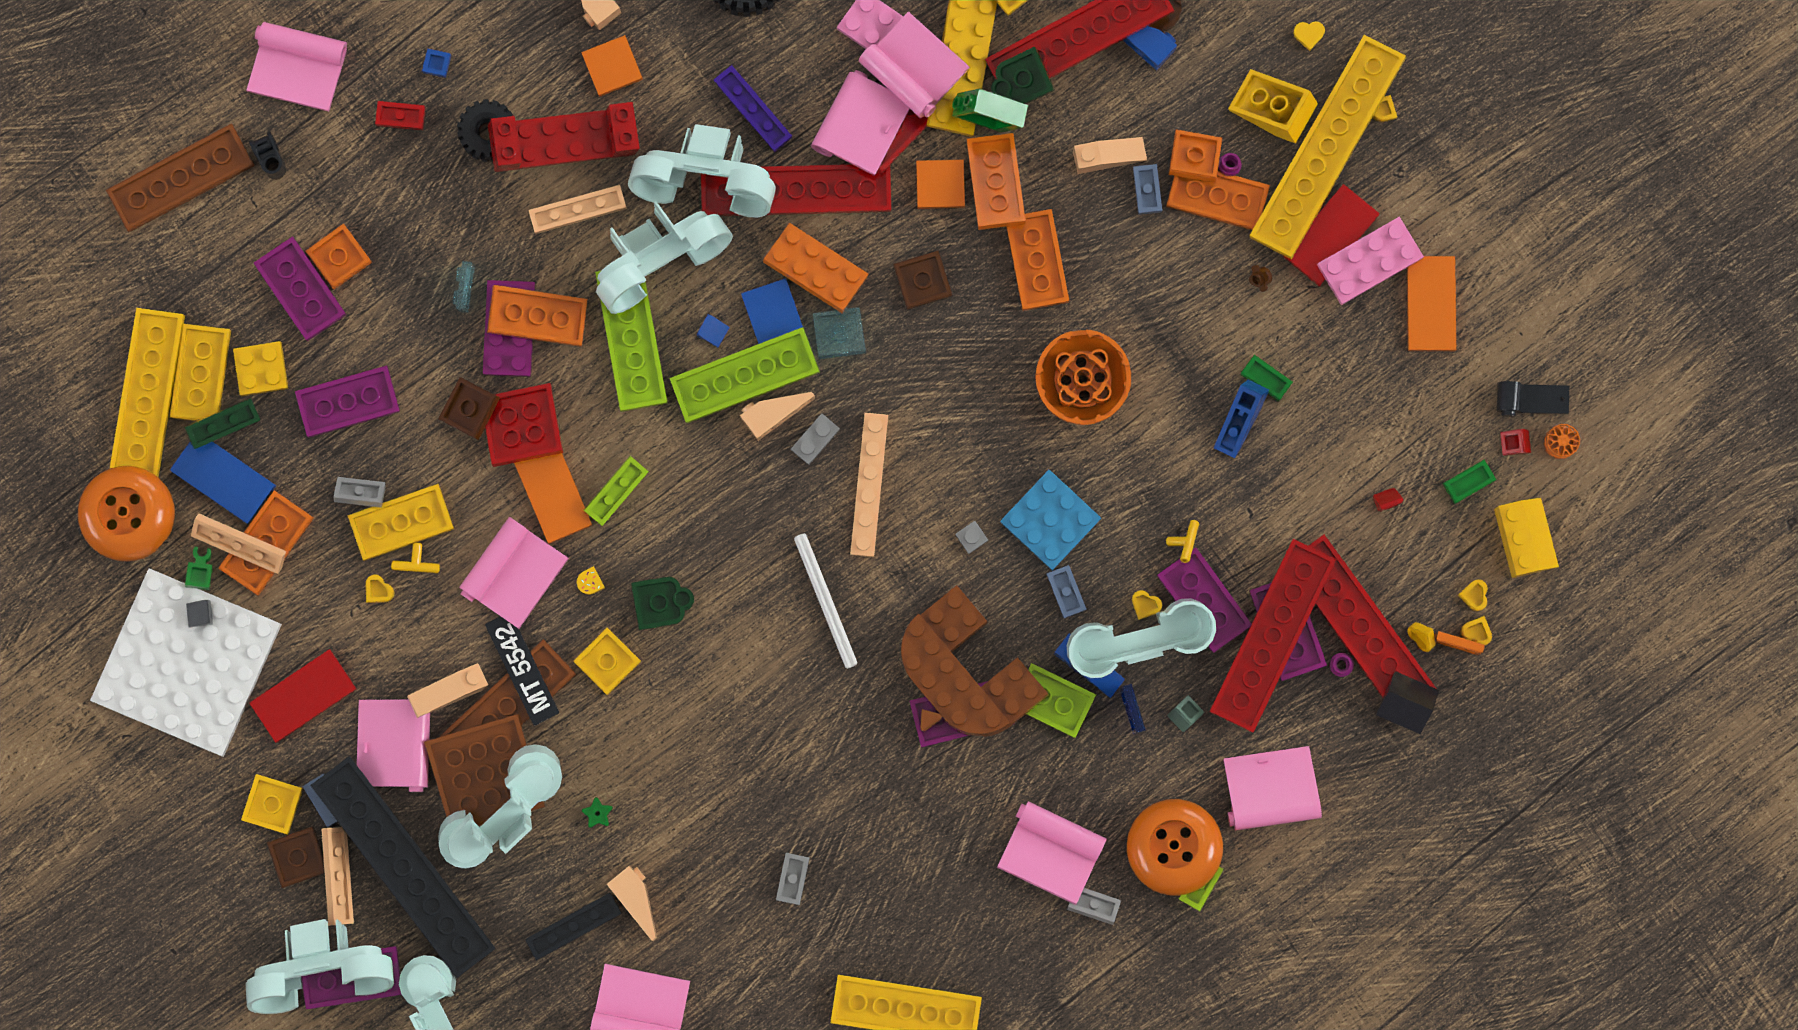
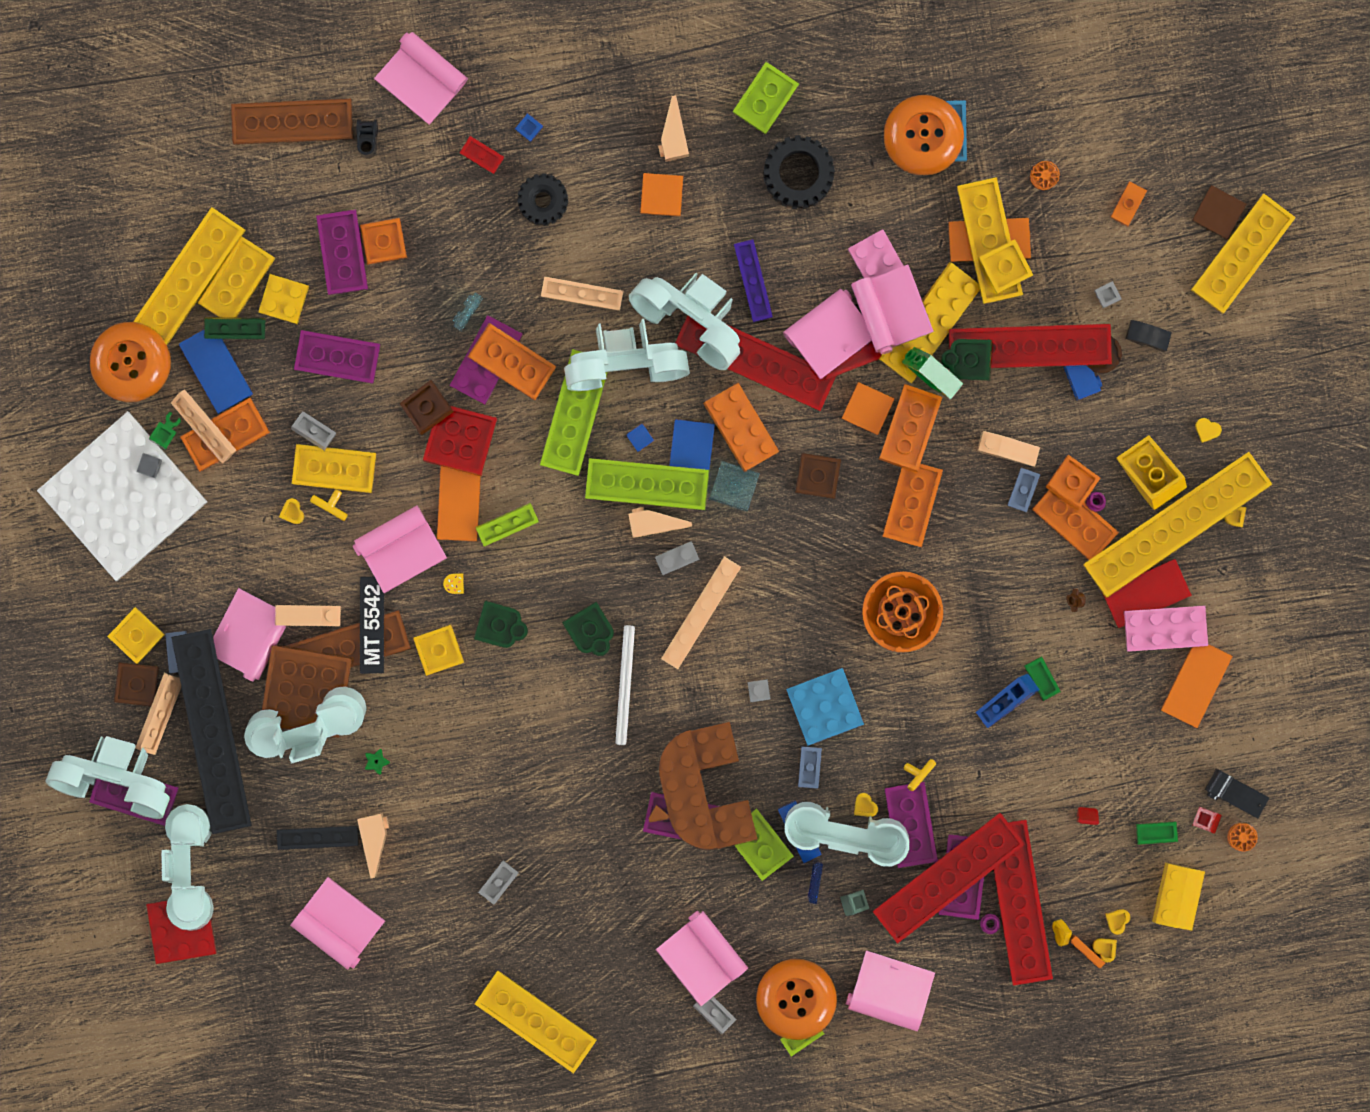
camera: 30 degrees right, 5 degrees up
(303, 696) = (198, 564): red tile -> none
(563, 138) = (597, 235): red plate -> none
(760, 560) = (590, 630): none -> dark green plate
(1407, 702) = (1025, 977): black slope -> none

